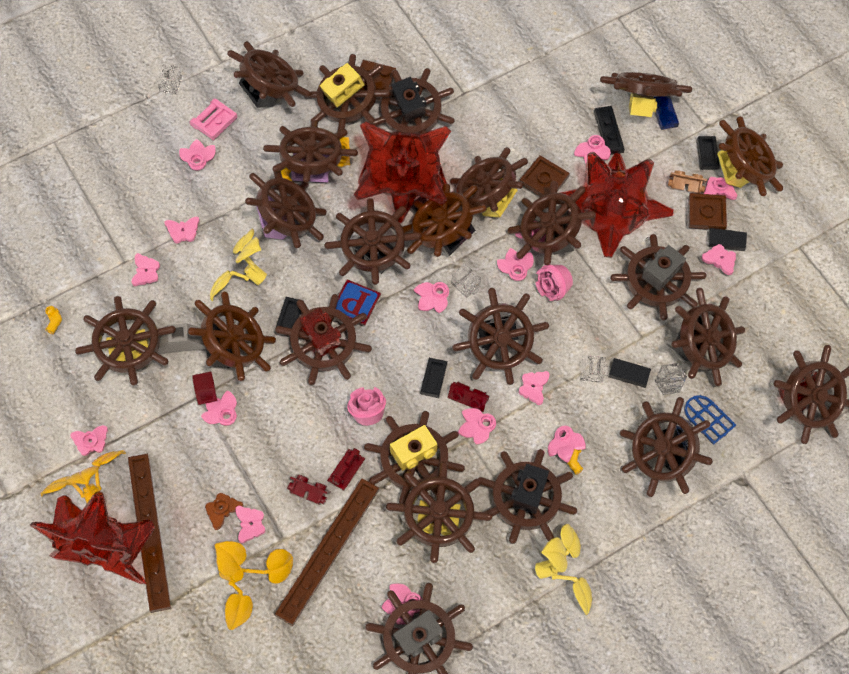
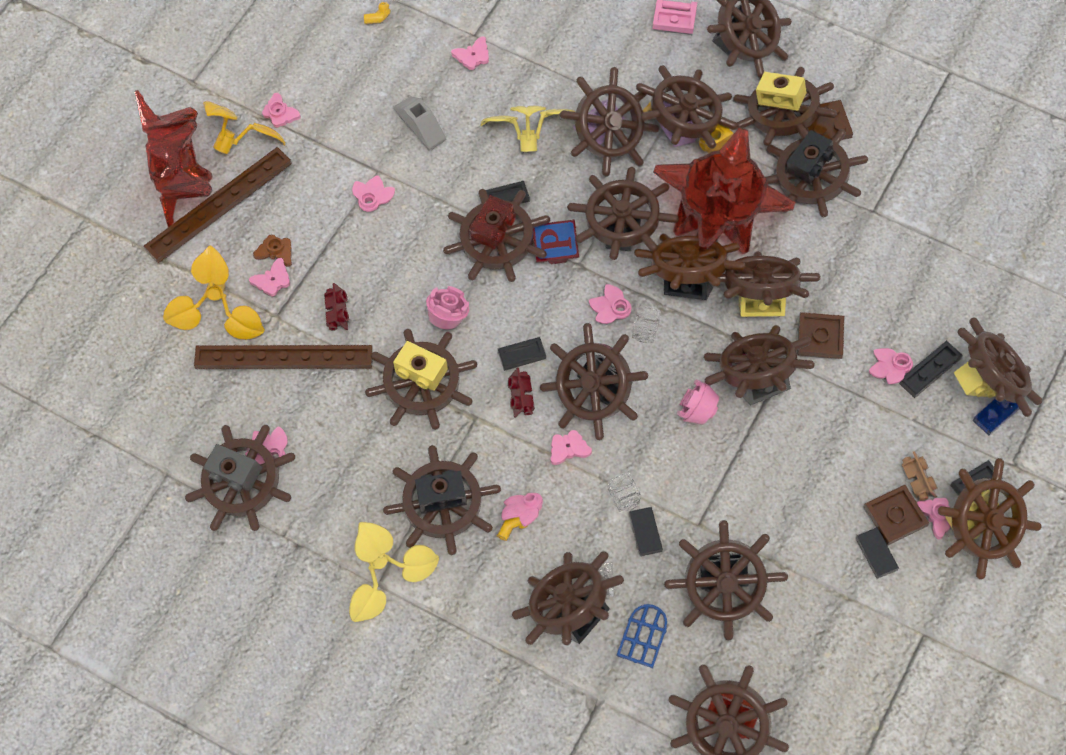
camera: 65 degrees right, 0 degrees up
(127, 347) = (382, 83): reddish brown brick -> none
(183, 231) = (535, 60): bright pink animal -> none
(197, 153) = (626, 25): bright pink plate -> none
(204, 388) = (382, 166): dark red brick -> none
(224, 340) = (439, 152): reddish brown brick -> none
(346, 469) = (376, 329): dark red hinge -> none
(439, 516) = (374, 437): reddish brown brick -> none
(474, 425) = (491, 417): bright pink plate -> none
(512, 264) = (695, 357): bright pink plate -> none
(617, 199) = (842, 415): clear red piece -> none
(658, 273) = (778, 492): reddish brown brick -> none
(670, 378) = (658, 570): clear brick -> none
(720, 258) = (842, 548): bright pink animal -> none

